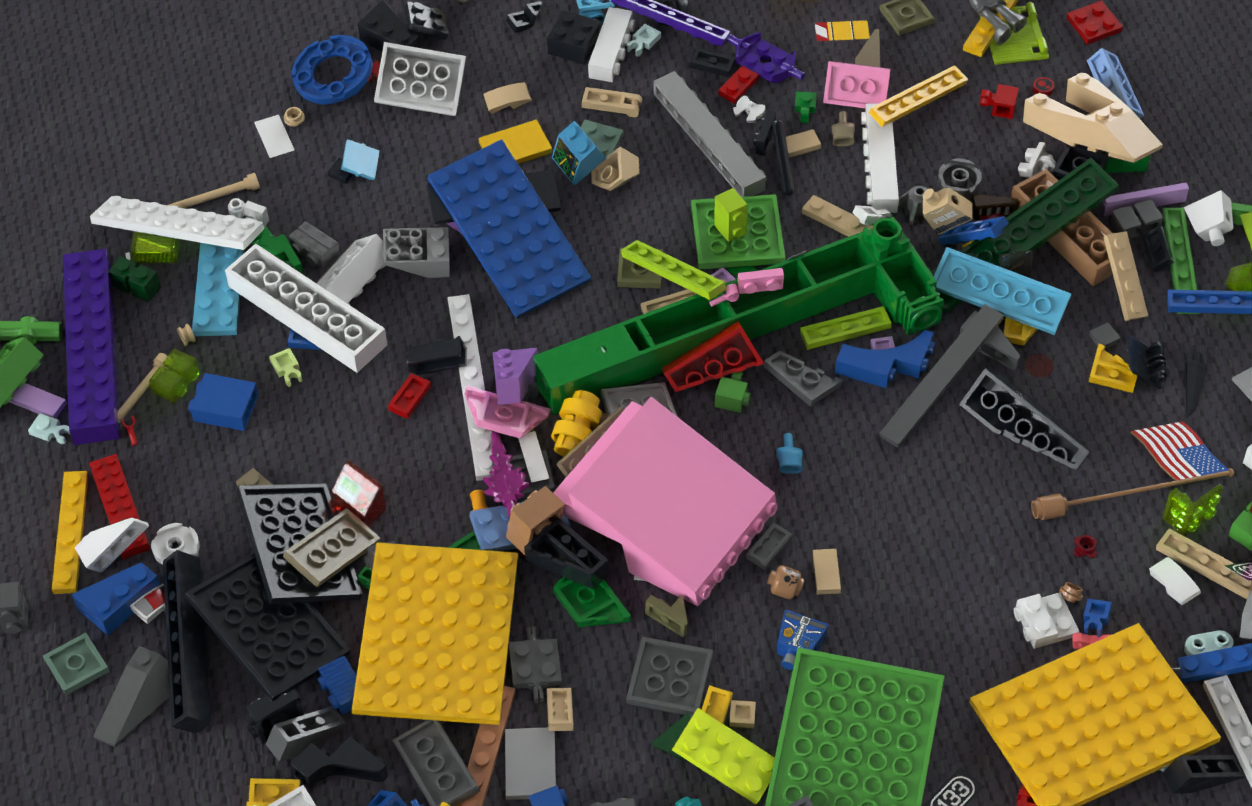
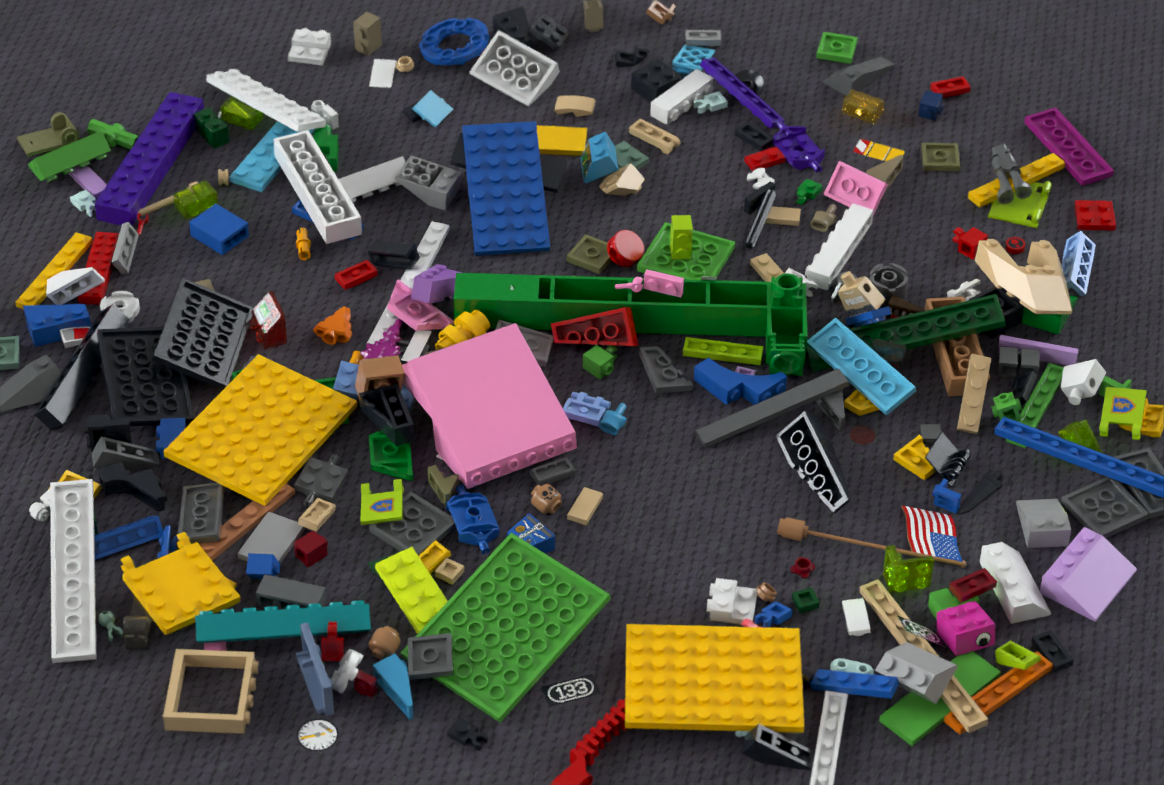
camera: 25 degrees right, 10 degrees down
(134, 469) = (125, 248): none -> light grey plate
(176, 135) = (309, 46): none -> white plate
(235, 96) = (367, 33): none -> dark tan brick
(249, 182) = (340, 96): tan piece -> none
(286, 365) = (280, 223): yellowish green plate -> none
(314, 245) = (356, 152): flat silver brick -> none
(327, 381) = (303, 244): none -> light orange pin
(331, 547) = (222, 344): dark tan plate -> none
(429, 469) = (335, 327): none -> orange rock
(582, 754) = (311, 548): none -> dark red brick
(624, 668) = (381, 506): none -> lime flag
(673, 269) = (607, 257): lime plate -> none
(675, 243) = (625, 248): none -> head
(709, 135) = (713, 184): light grey brick -> none
(735, 652) = (473, 529): none -> blue plate
(754, 460) = (586, 408): none -> light blue plate
(918, 96) = (900, 212): yellow plate -> none
(1114, 583) = (805, 600): none -> dark green plate
(1161, 278) = (1006, 406): none -> bright green brick
(1169, 405) = (946, 498): none -> blue bracket

